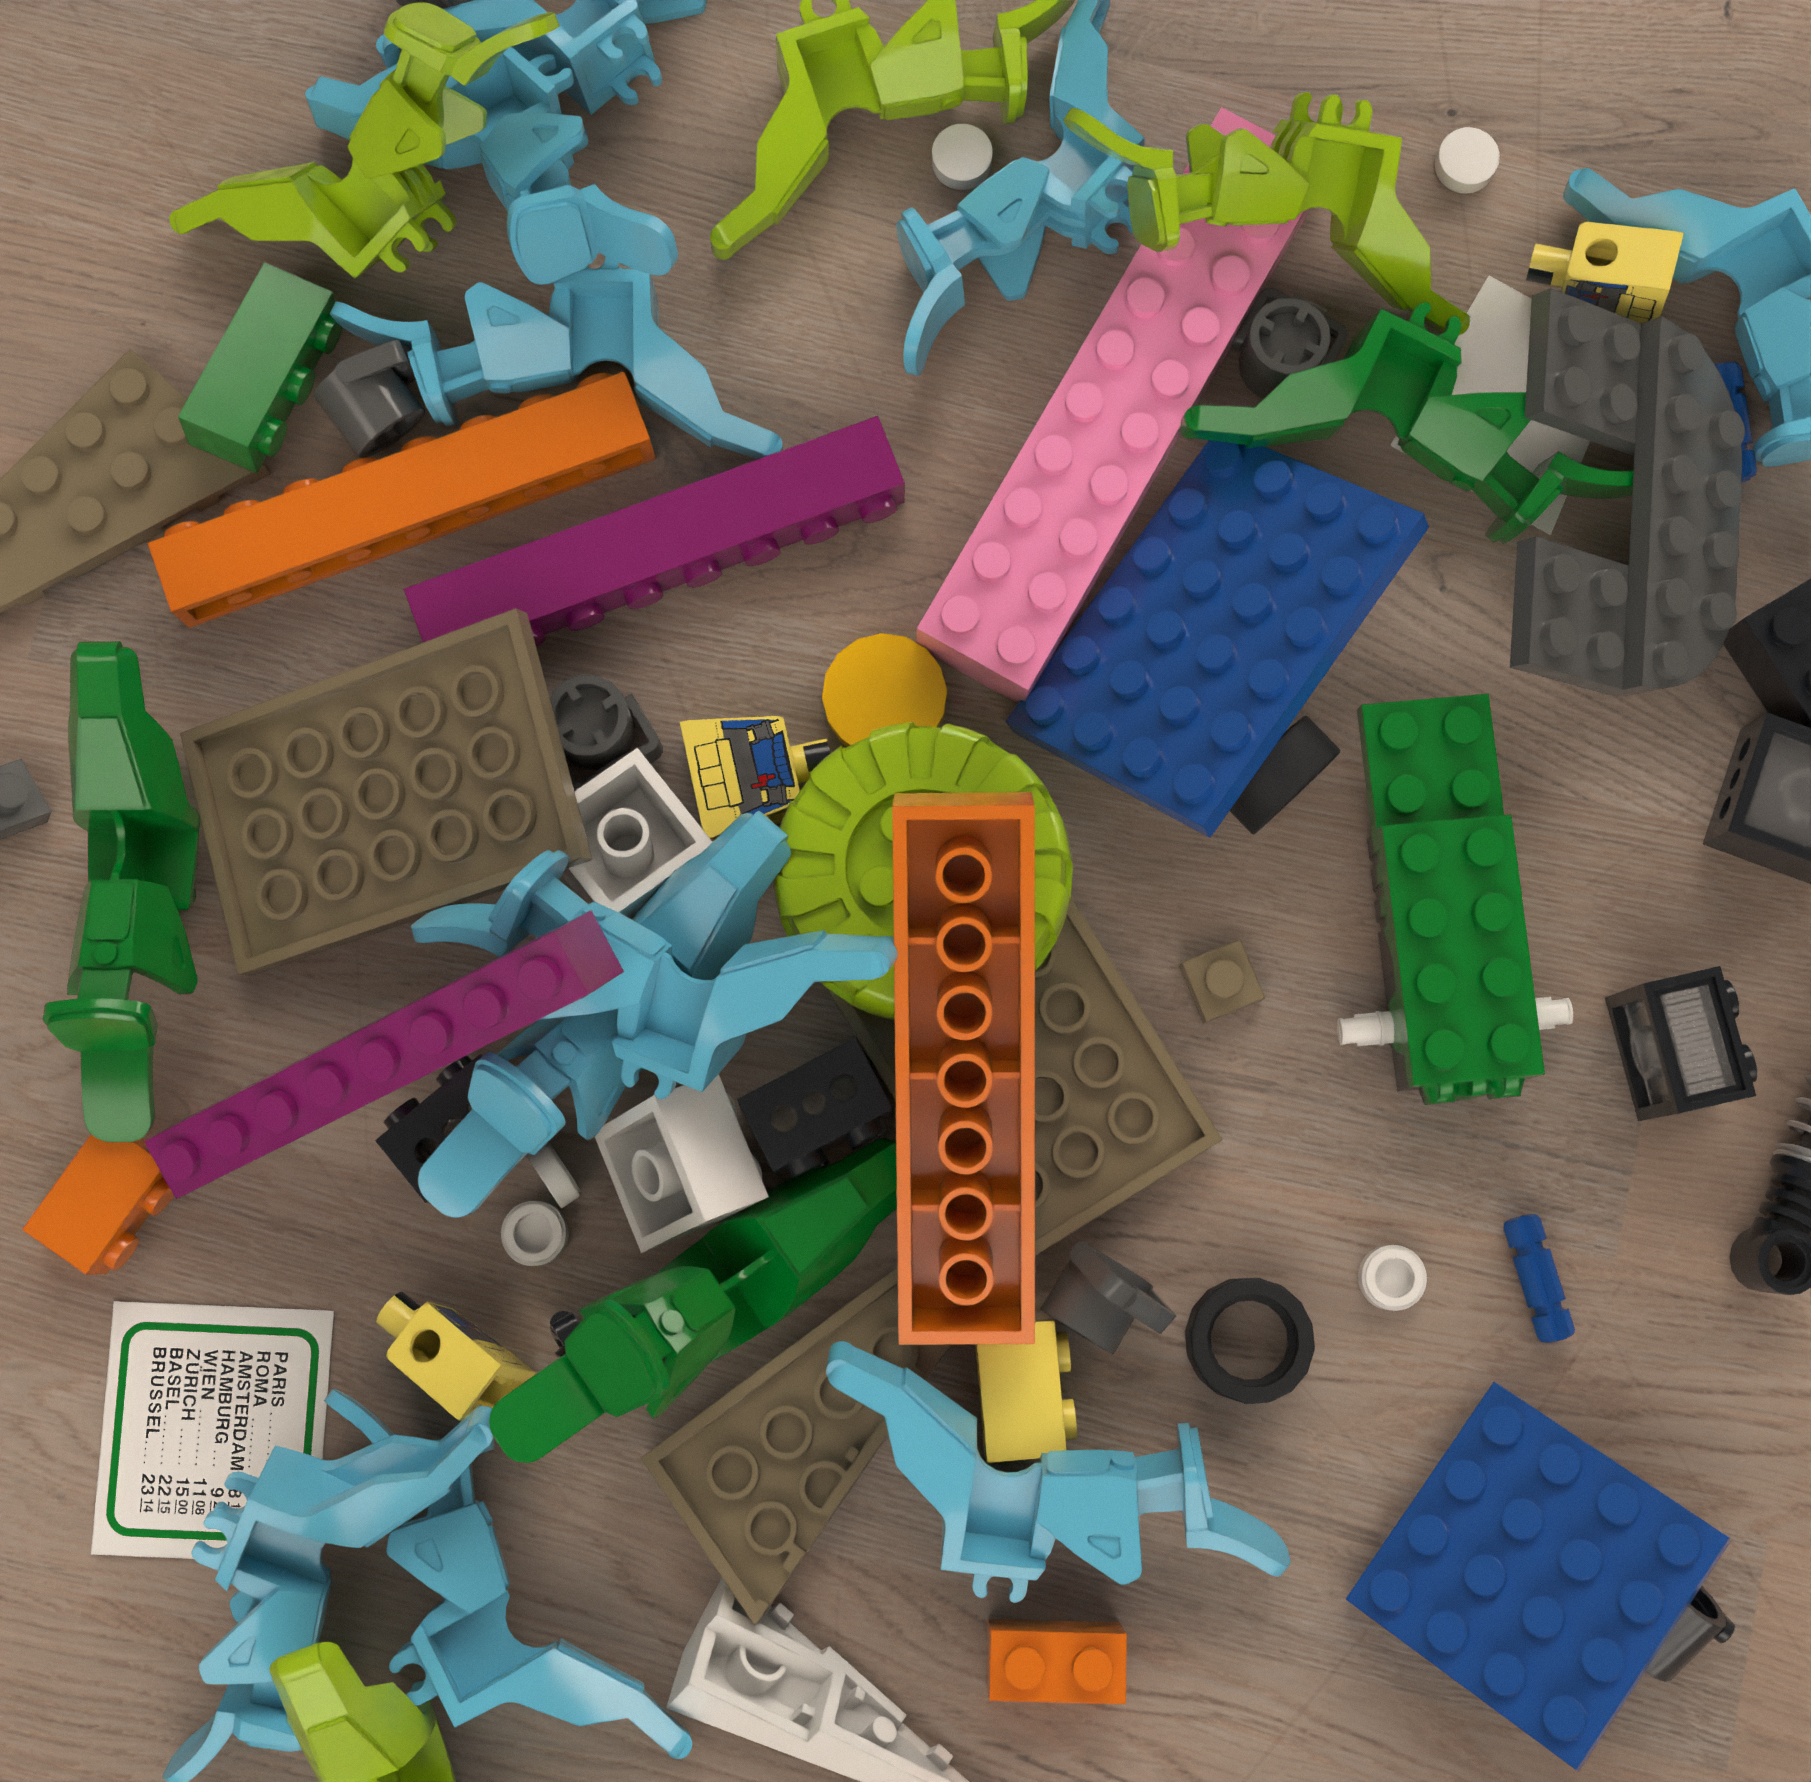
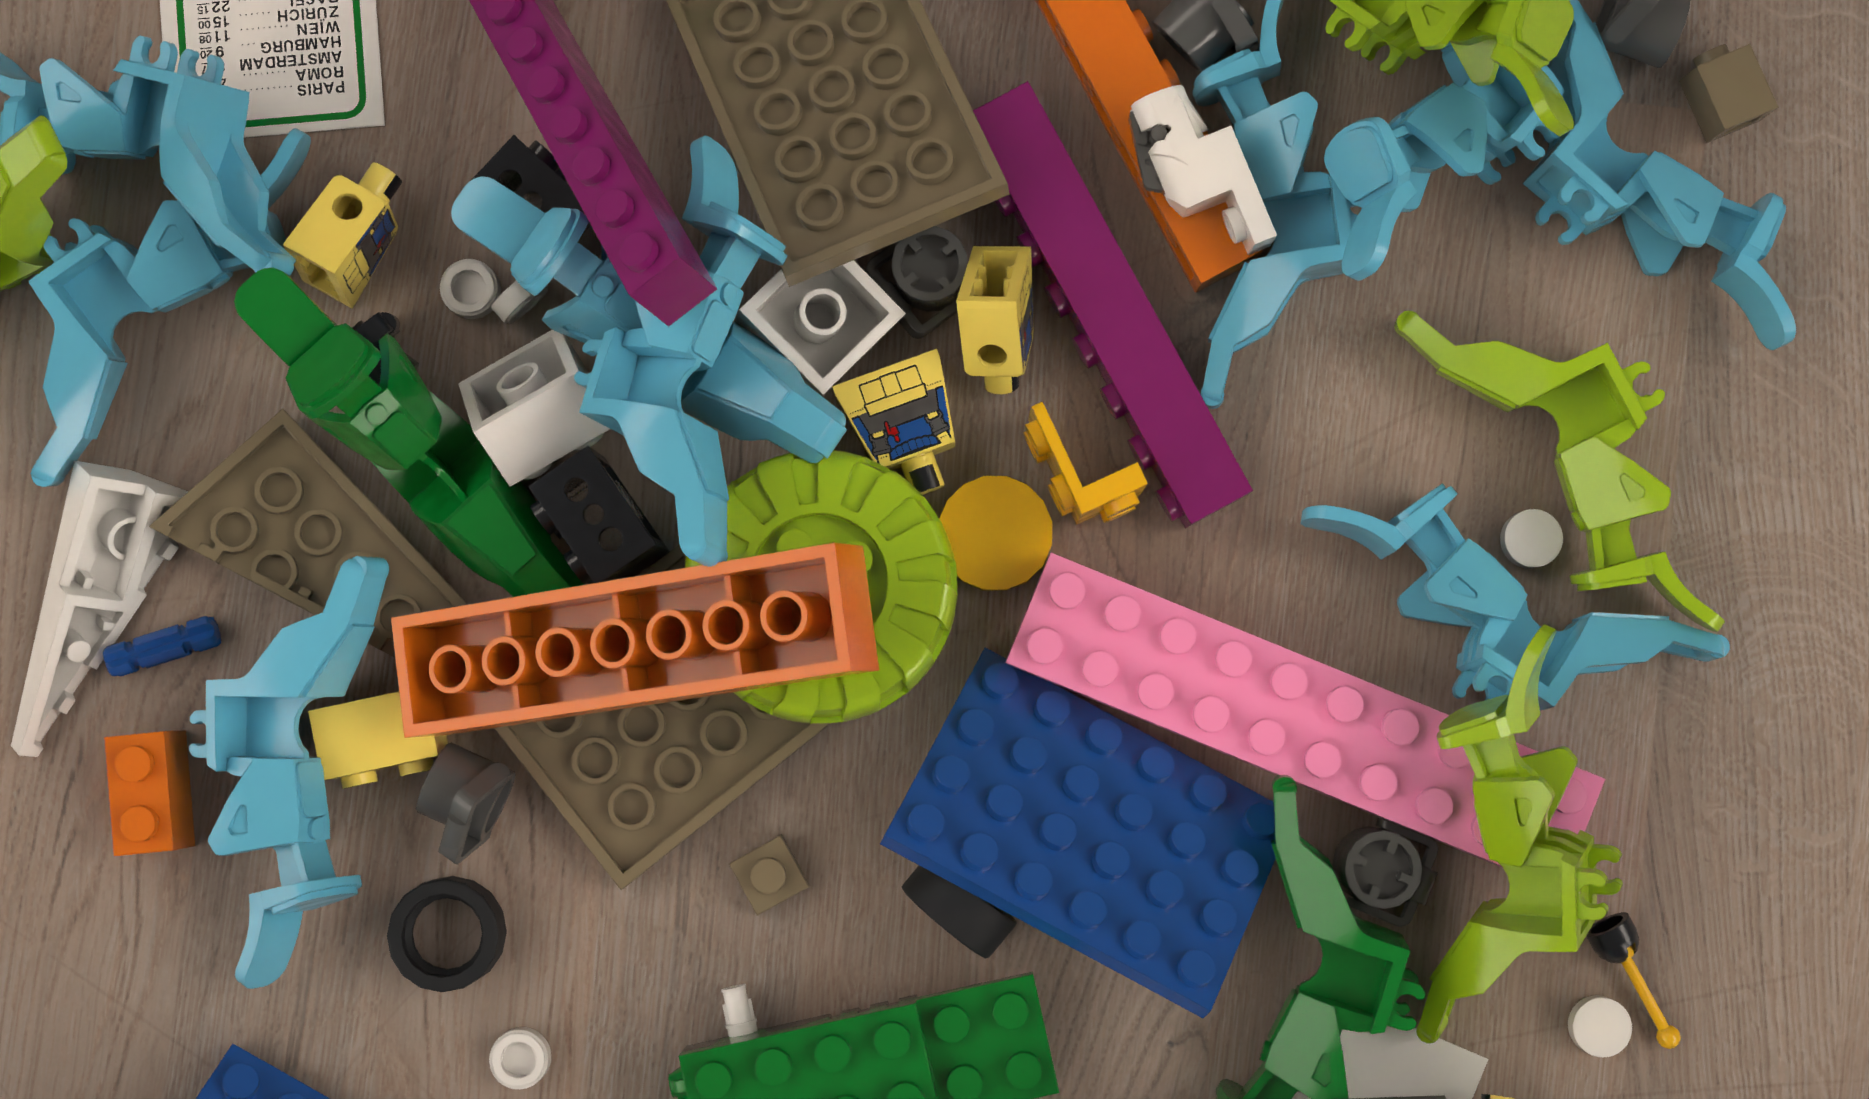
camera: 90 degrees right, 5 degrees up
(530, 417) = (1197, 168): none -> white plate
(666, 654) = (997, 315): none -> light yellow torso
(843, 604) = (1108, 496): none -> yellow bracket
(890, 1633) = (162, 646): none -> blue axle
(1388, 121) = (1617, 942): none -> hinge

